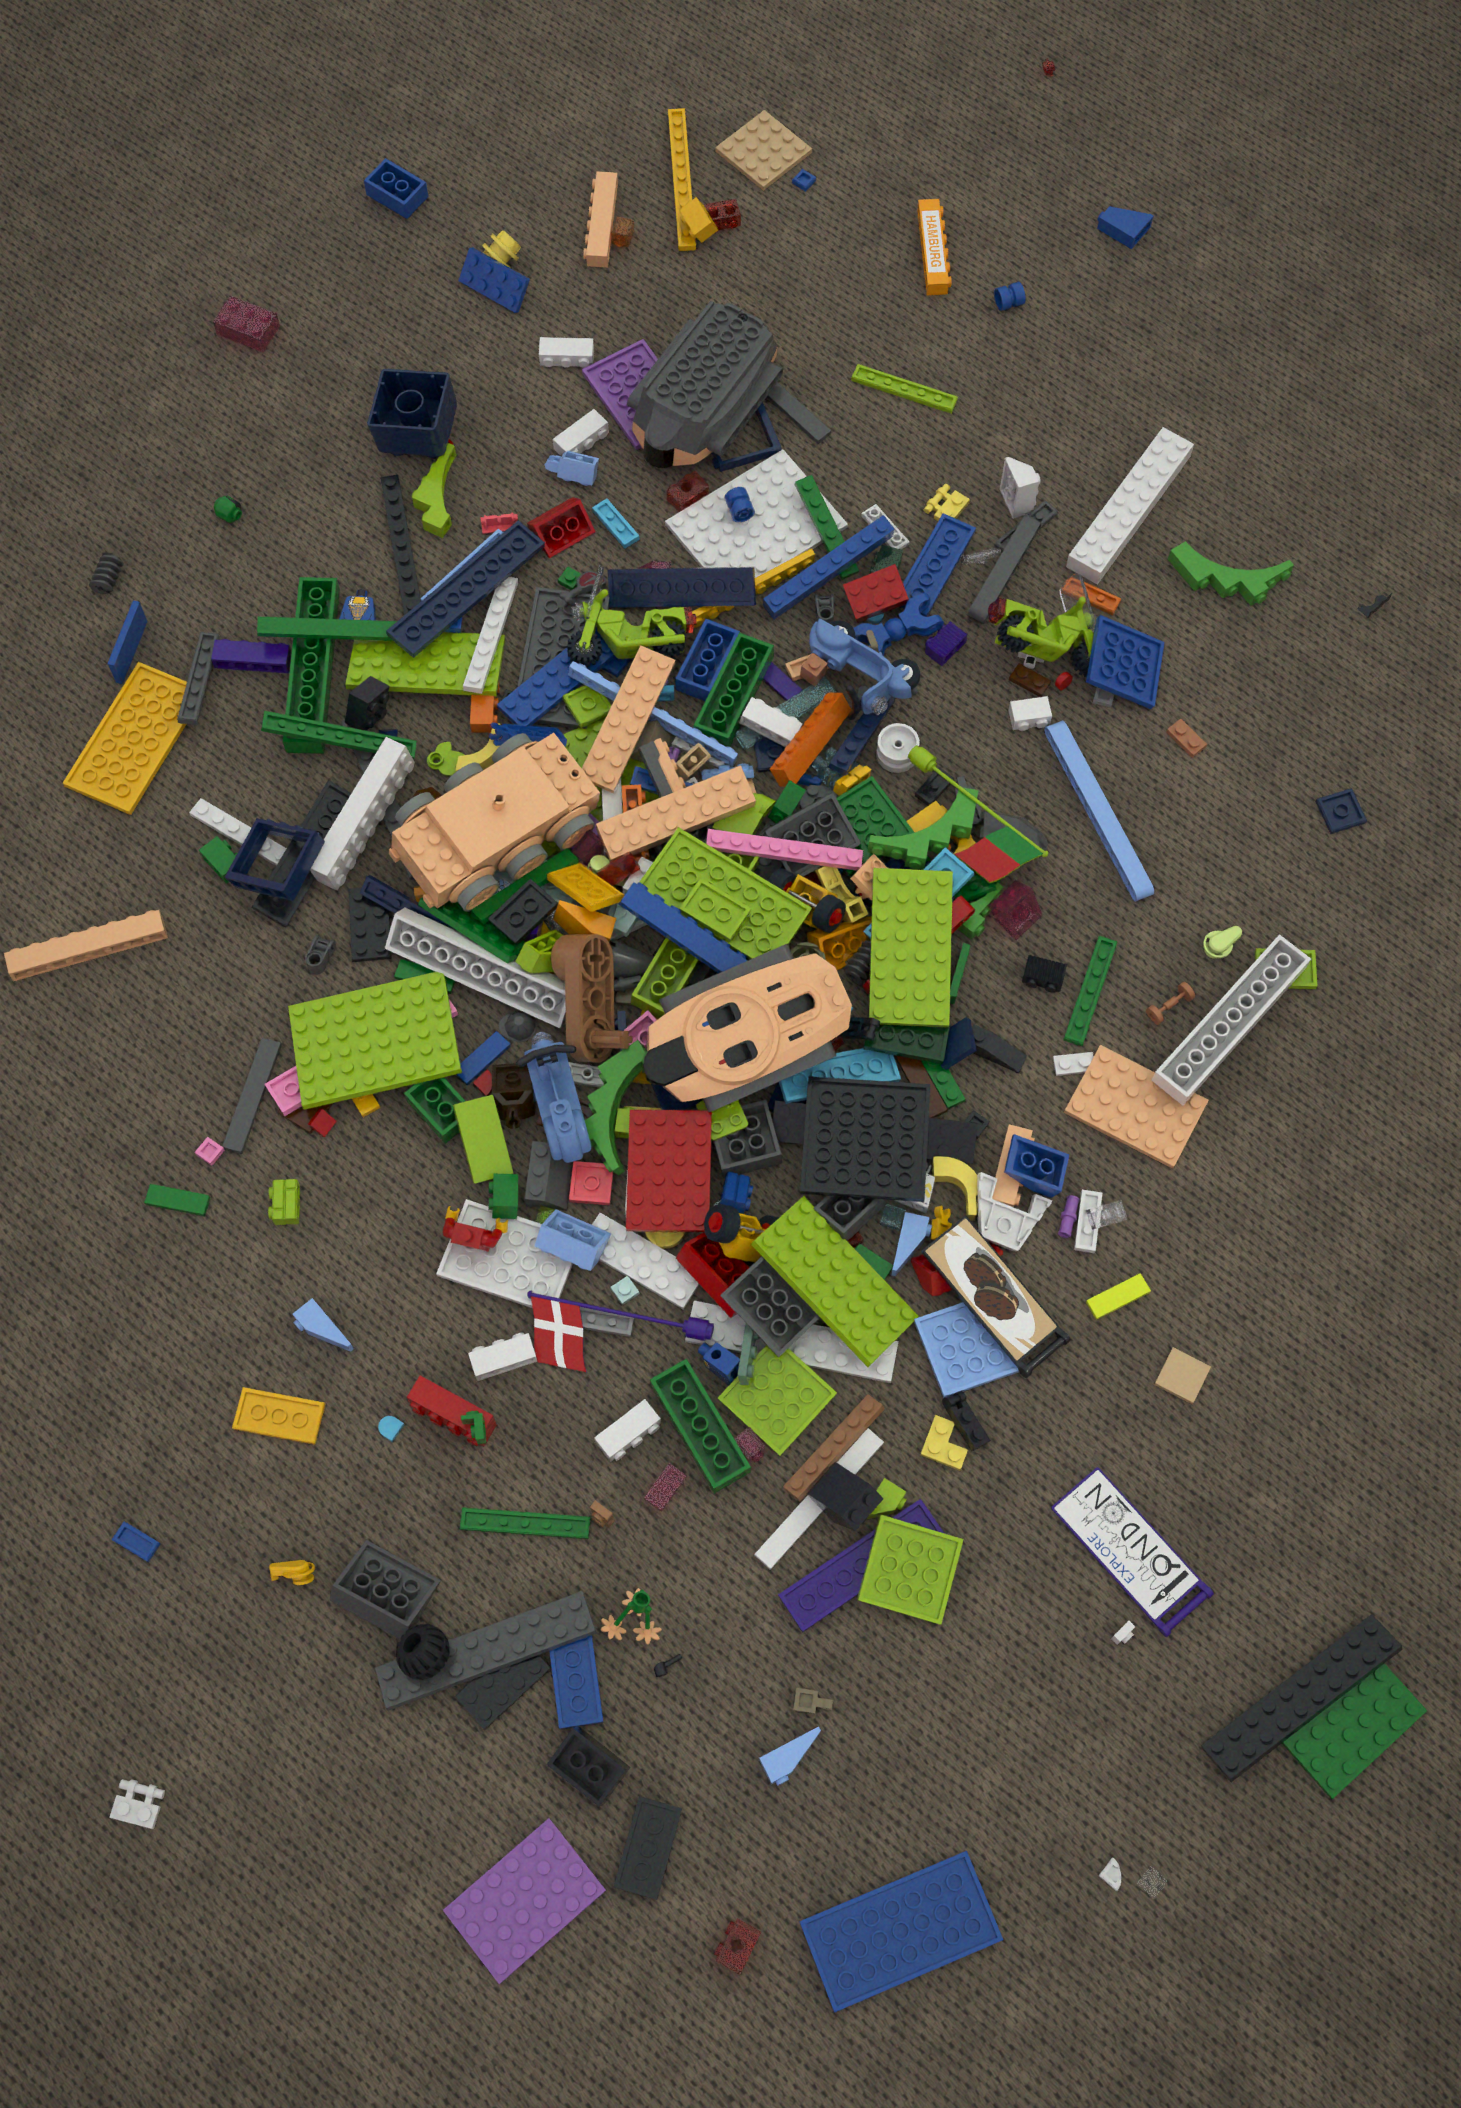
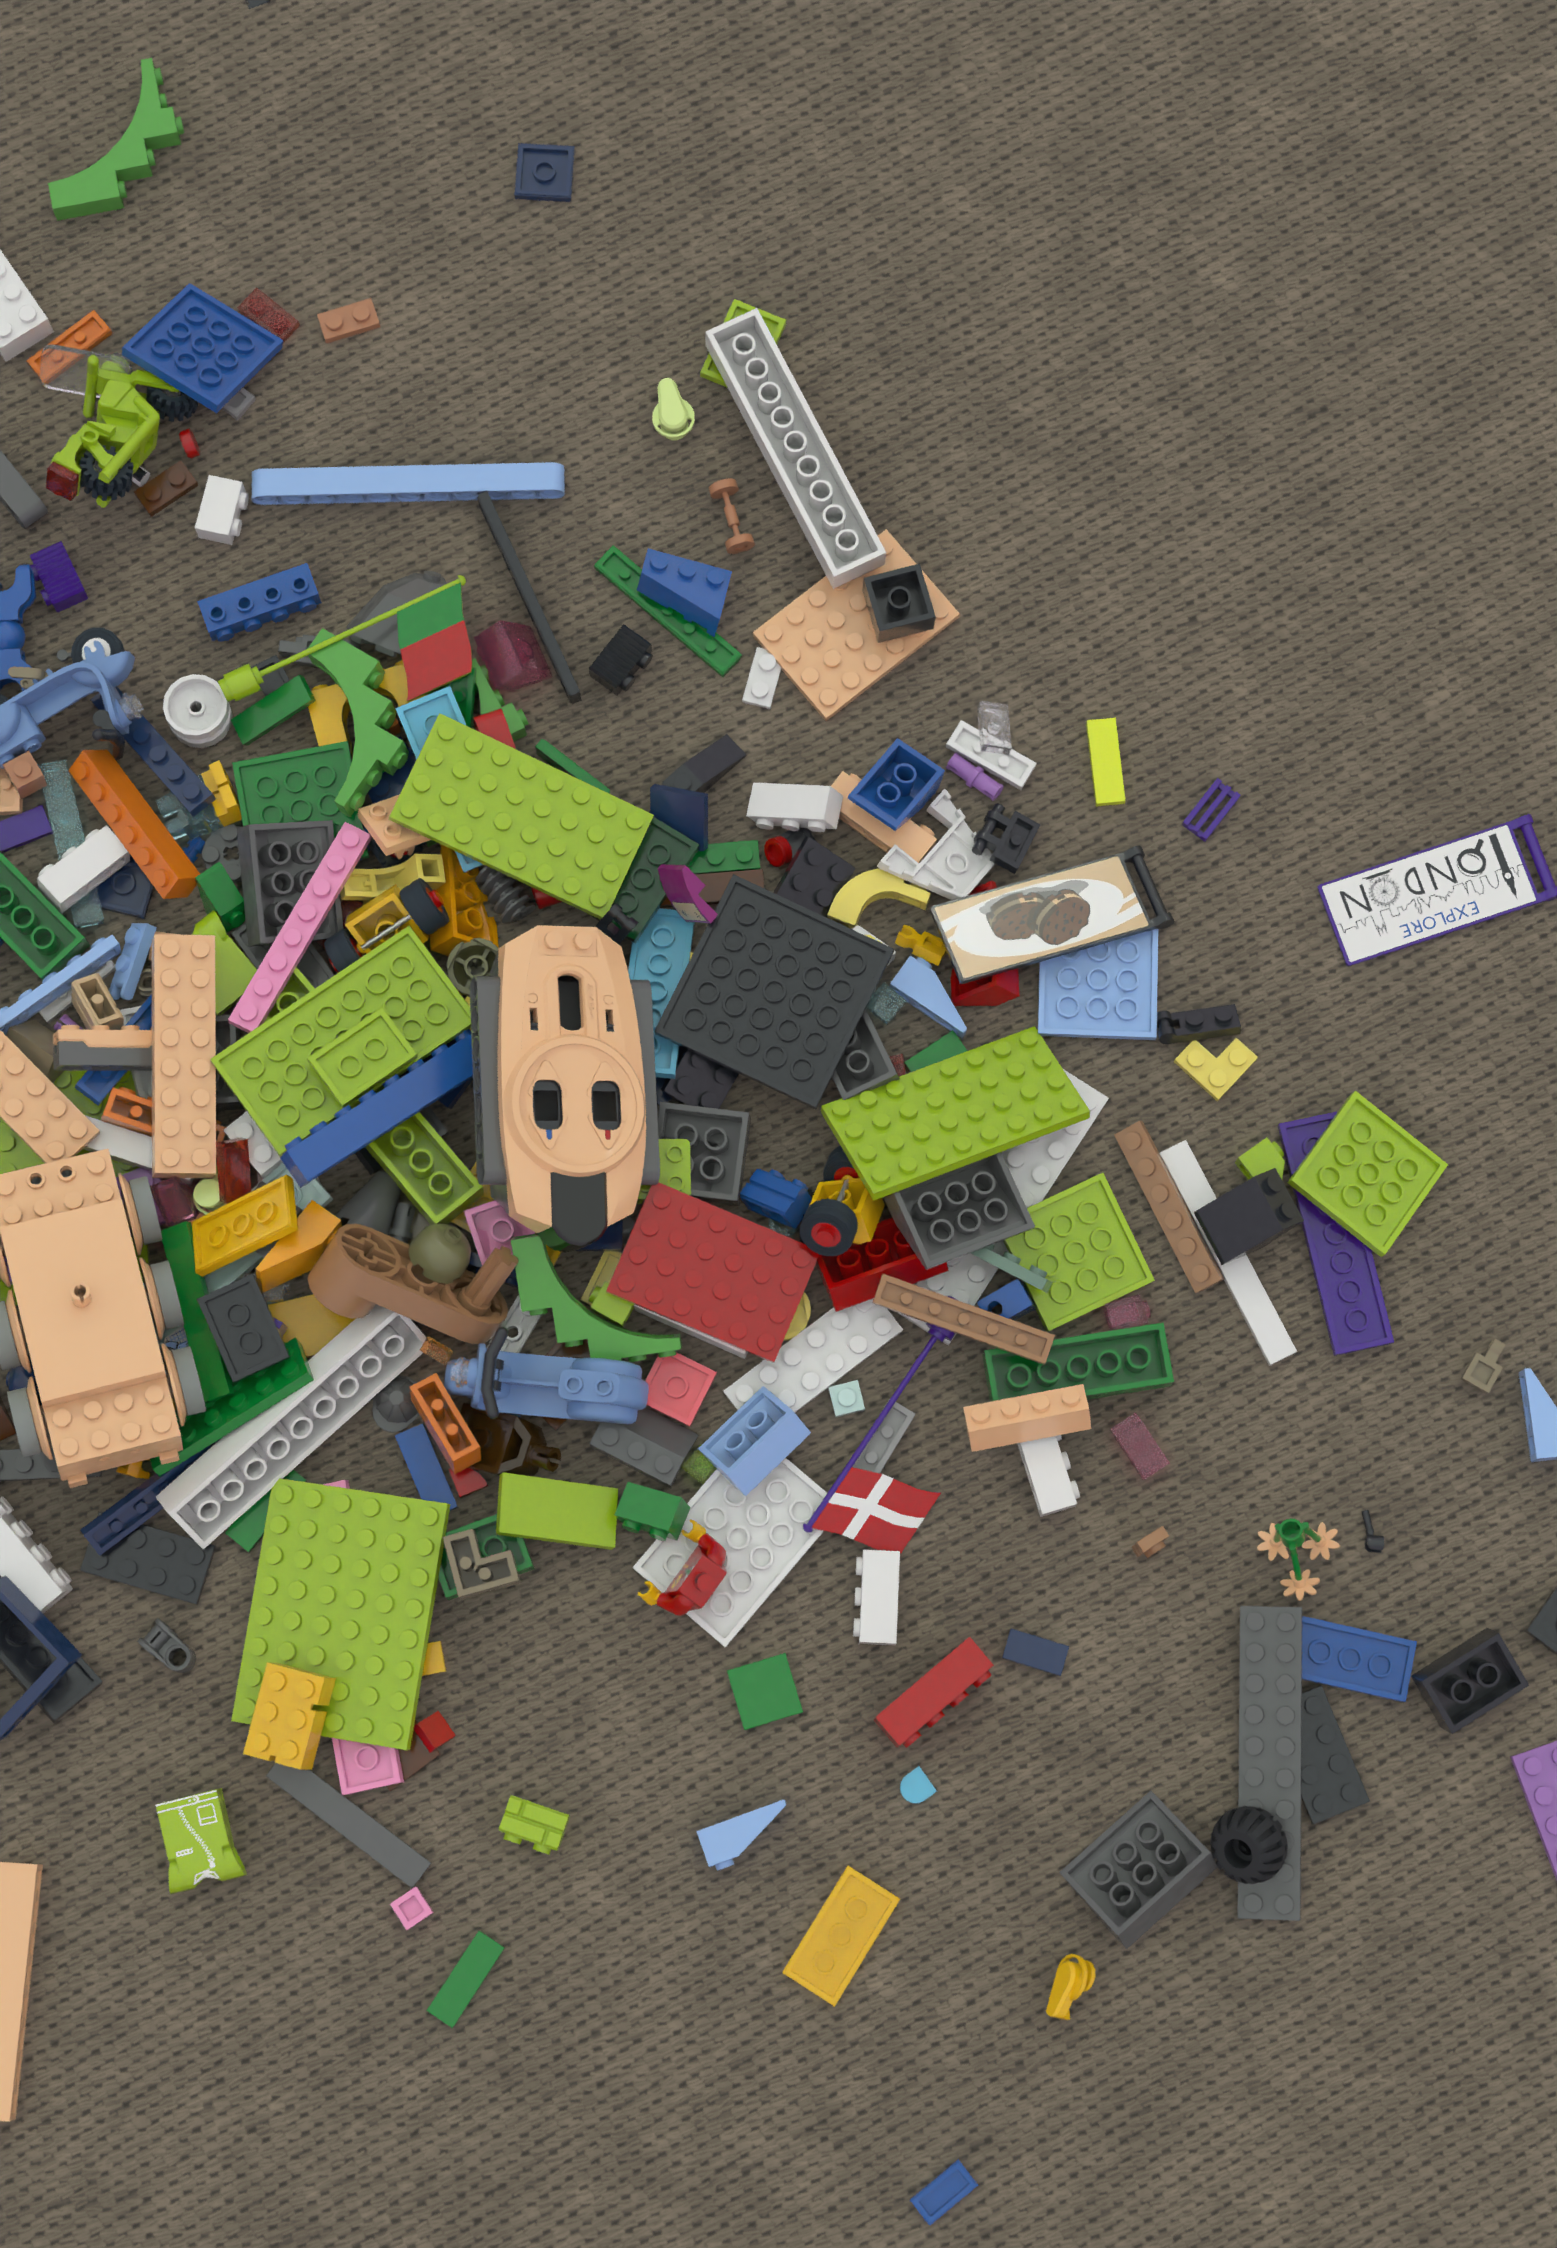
camera: 70 degrees left, 10 degrees up
(209, 1014) = (198, 1840): none -> lime piece
(291, 1027) = (283, 1719): none -> yellow piece
(417, 1310) = (764, 1691): none -> green tile
(423, 1099) = (477, 1574): none -> dark tan brick
(478, 1429) = (987, 1663): green bracket -> none
(504, 1471) = (1035, 1652): none -> dark blue tile
(510, 1051) = (445, 1423): none -> orange brick
(525, 1523) = (1116, 1650): green tile -> none
(536, 953) = (319, 1327): lime wedge -> none
(555, 1028) = (436, 1350): none -> clear orange tile
(615, 1005) = (441, 1252): none -> olive cylinder
(651, 1401) = (1027, 1417): none -> light nougat brick
(699, 1335) = (963, 1319): none -> medium nougat plate
(907, 1058) = (682, 890): none -> magenta slope
(917, 788) = (273, 710): none -> green tile
(963, 1113) = (778, 851): none -> red tile
(982, 756) = (259, 603): none -> blue brick
(994, 1109) = (794, 806): none -> white brick
(1035, 928) = (529, 598): none -> black tile
(1036, 1256) = (1014, 841): none -> black plate
(1109, 992) = (685, 586): none -> blue wedge
(1124, 1633) = (1540, 944): white plate -> none
(1134, 1381) = (1225, 790): none -> dark purple tile
(1159, 1120) = (898, 603): none -> black brick
(1166, 693) = (268, 314): none -> clear red plate
(1182, 1375) = (1240, 728): tan tile -> none

